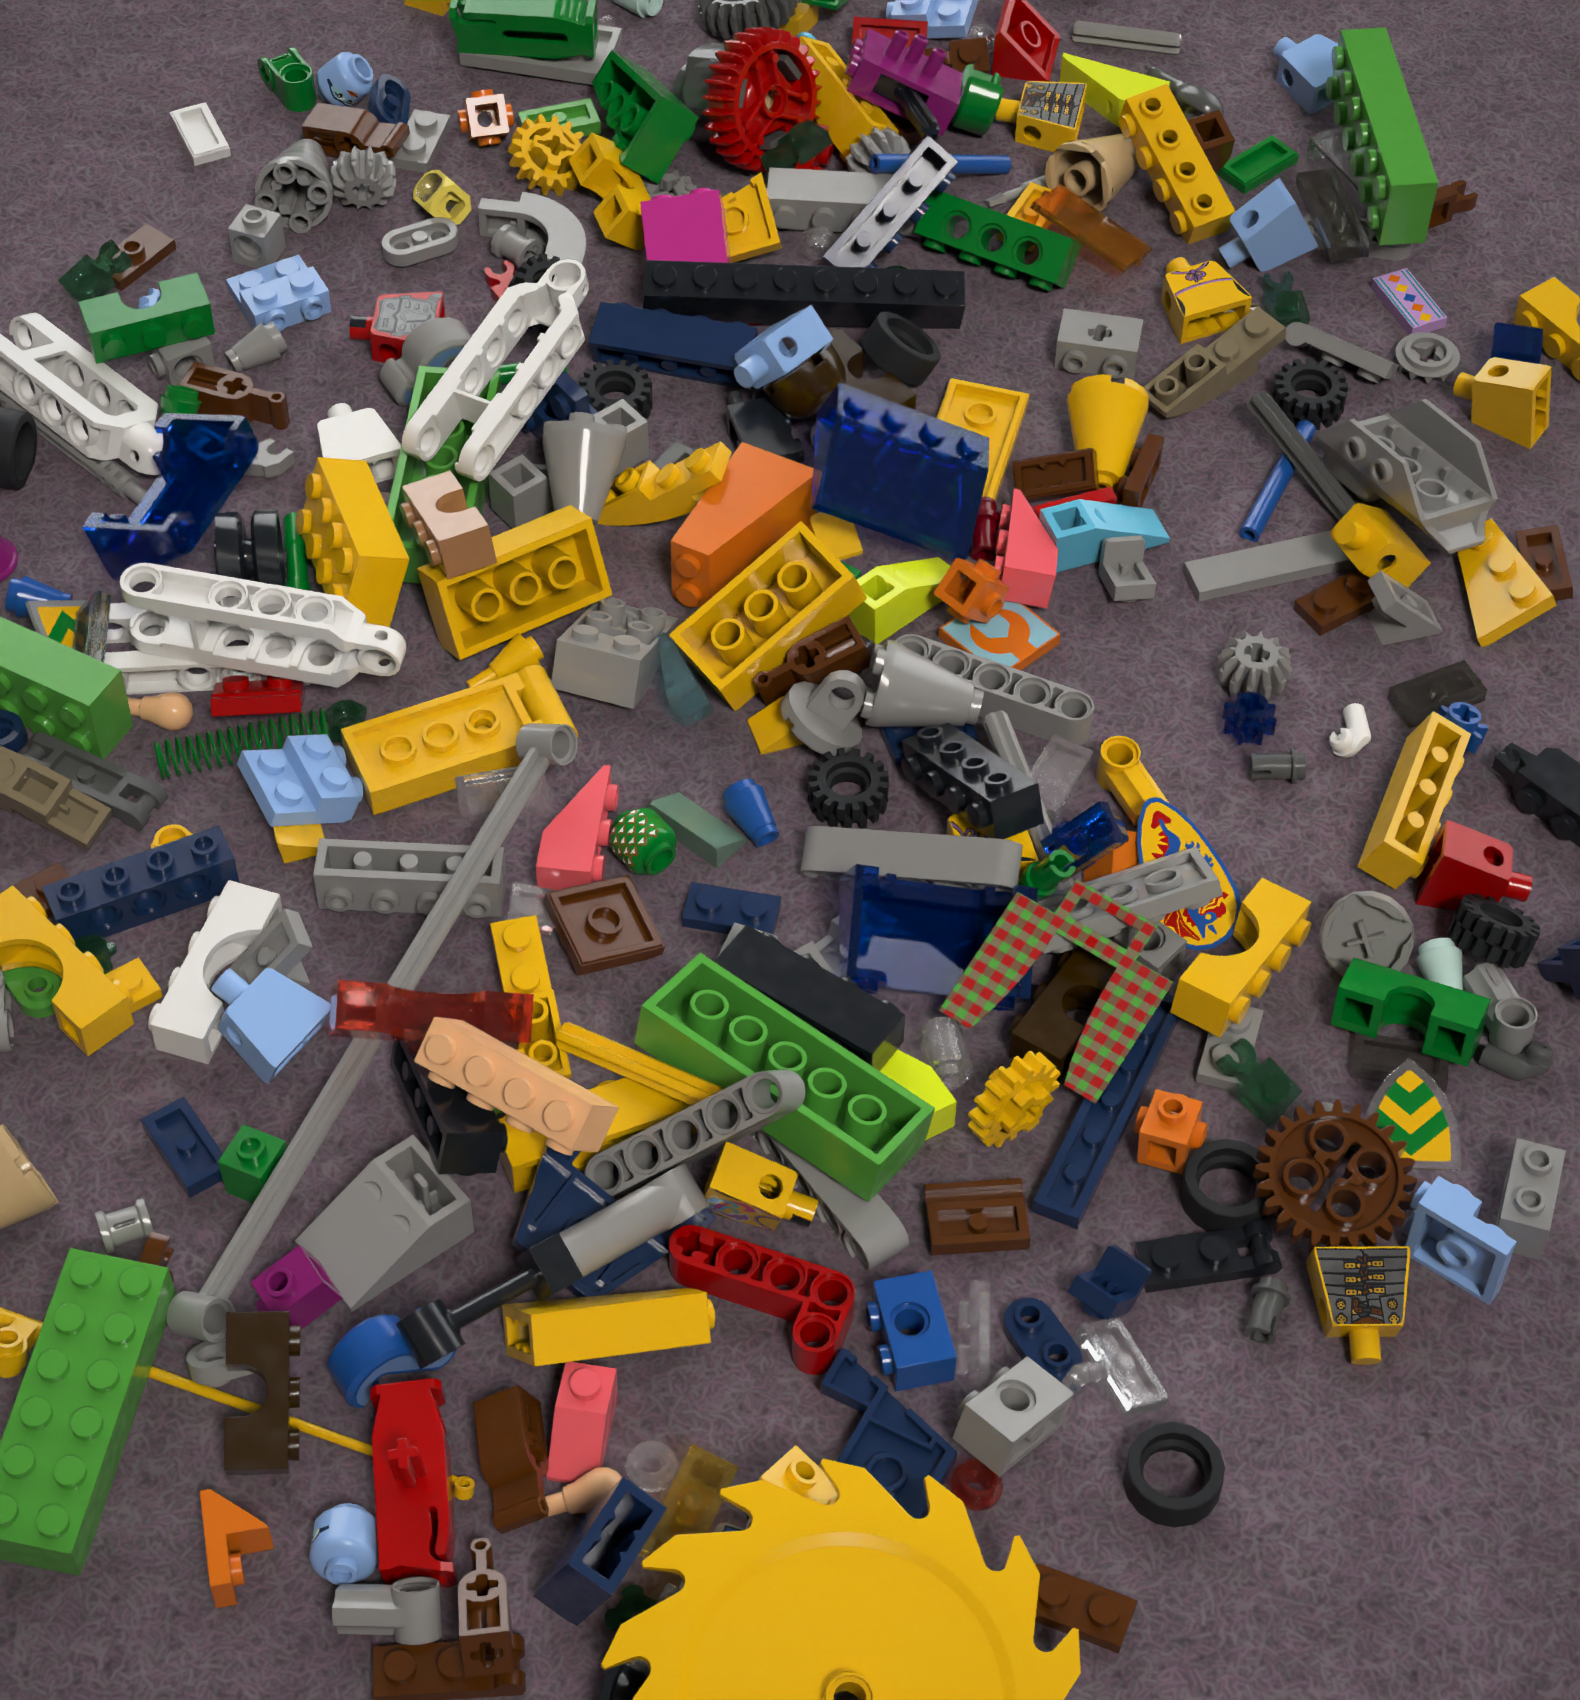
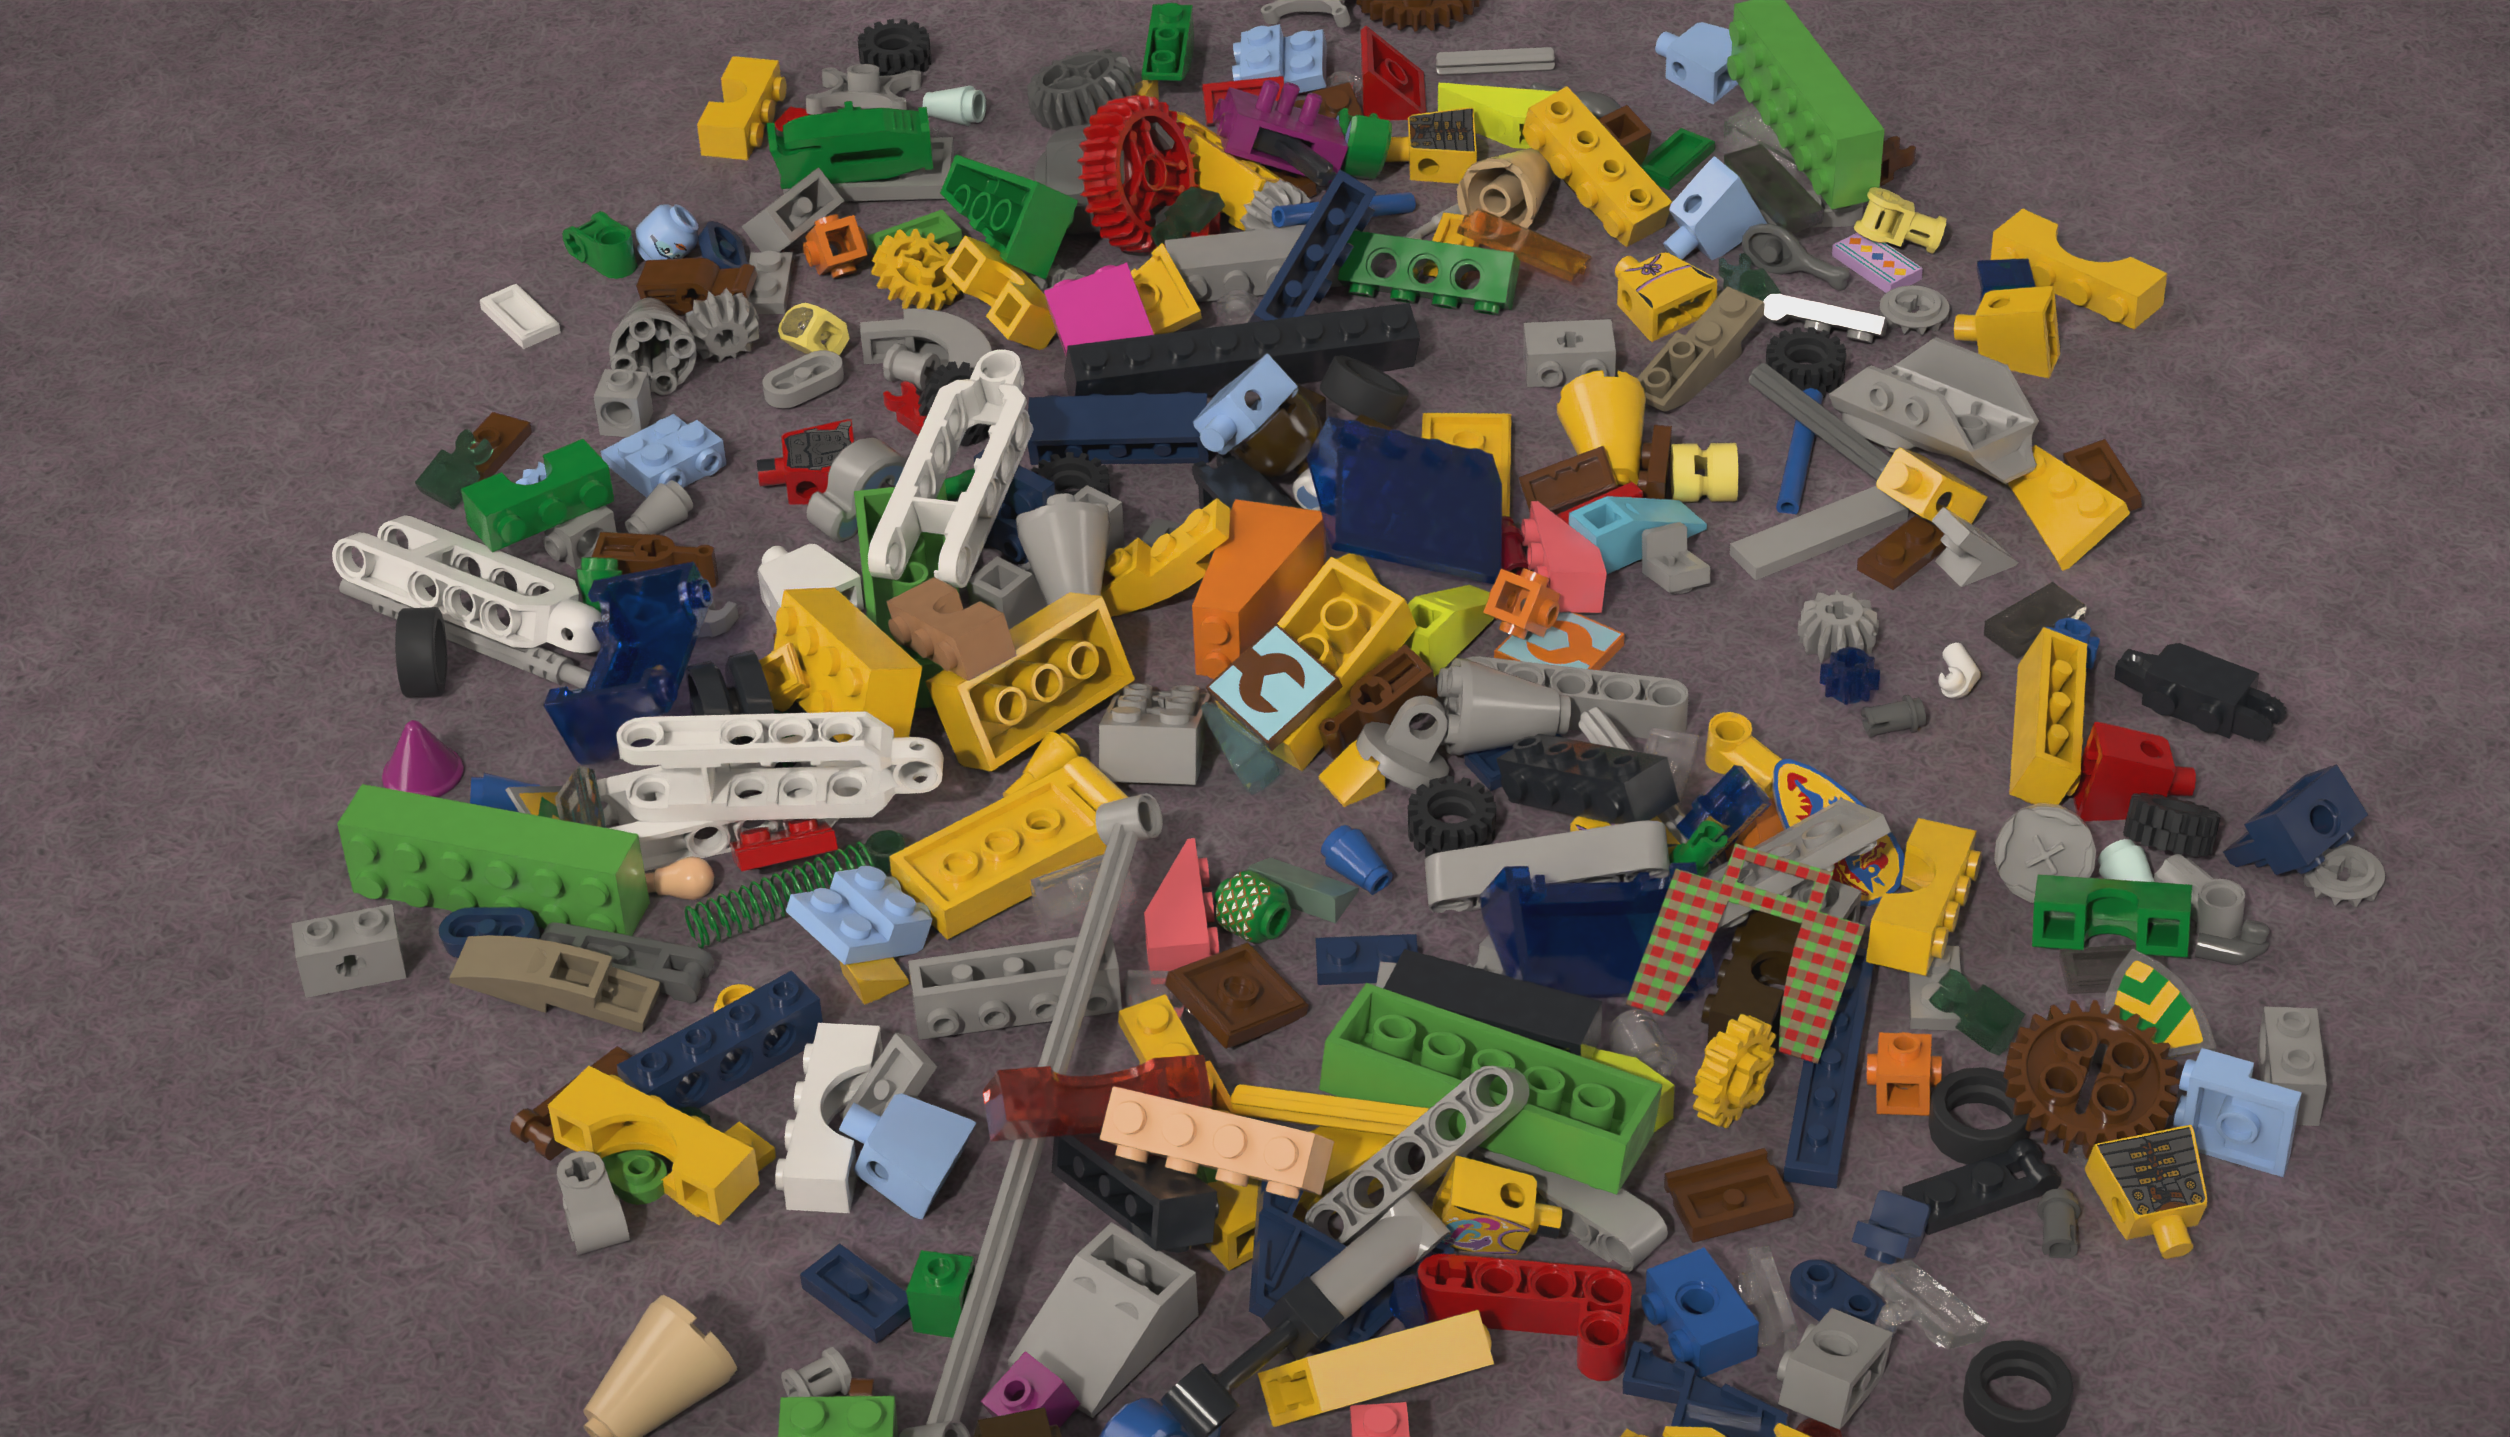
camera: 10 degrees left, 10 degrees down
(296, 537) = (783, 676): none -> yellow slope
(458, 79) = (793, 213): none -> light grey brick
(655, 1266) = (1407, 1302): none -> clear blue tile
(719, 634) = (1274, 686): none -> tile
(1195, 491) = (1720, 476): none -> light yellow wheel
(1320, 277) = (1781, 253): none -> dark grey piece
(1437, 267) = (1894, 220): none -> light yellow connector

